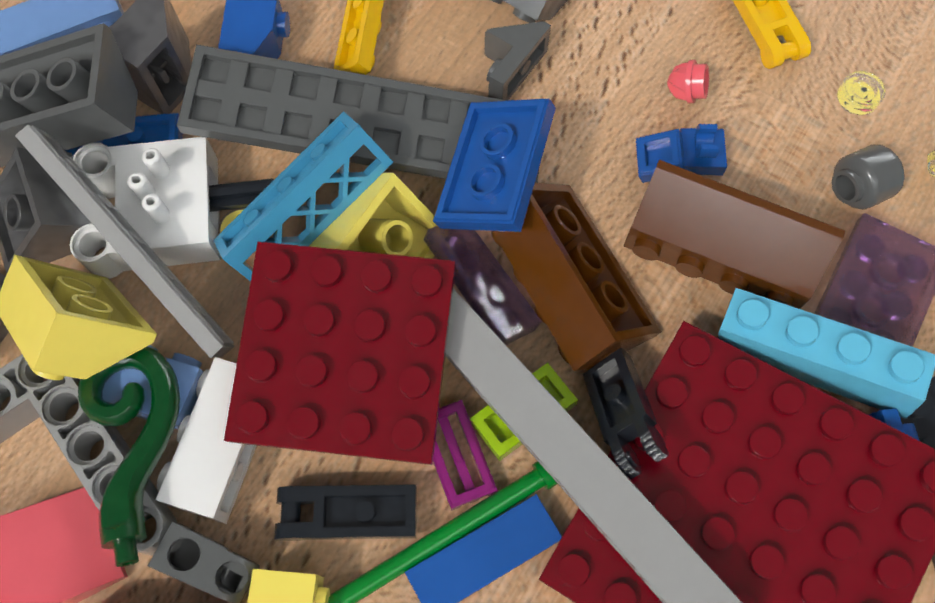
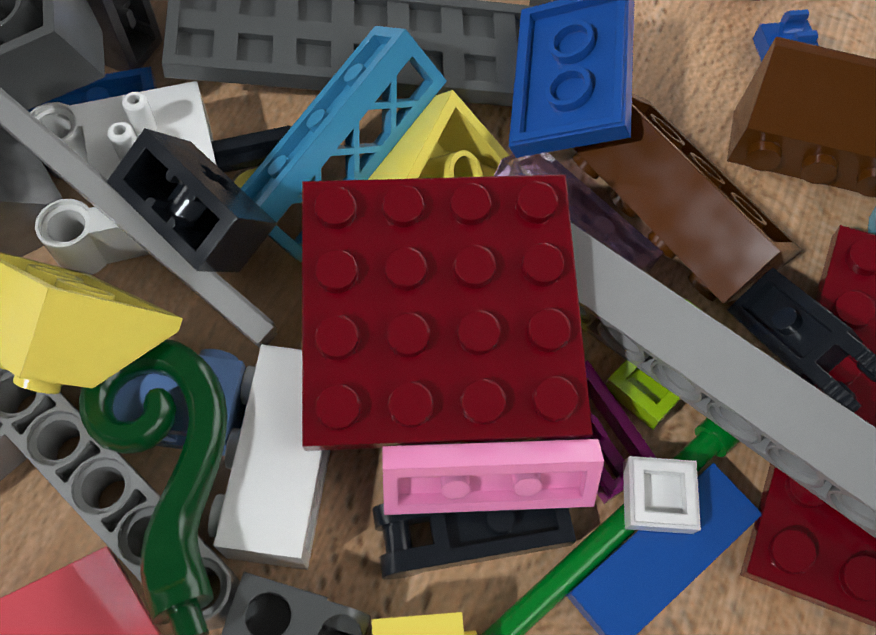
camera: 15 degrees left, 5 degrees down
(177, 246) = (191, 202): none -> black brick
(355, 481) = (491, 476): none -> bright pink plate
(485, 512) = (661, 495): none -> white tile
(655, 147) = (741, 53): blue tile -> none

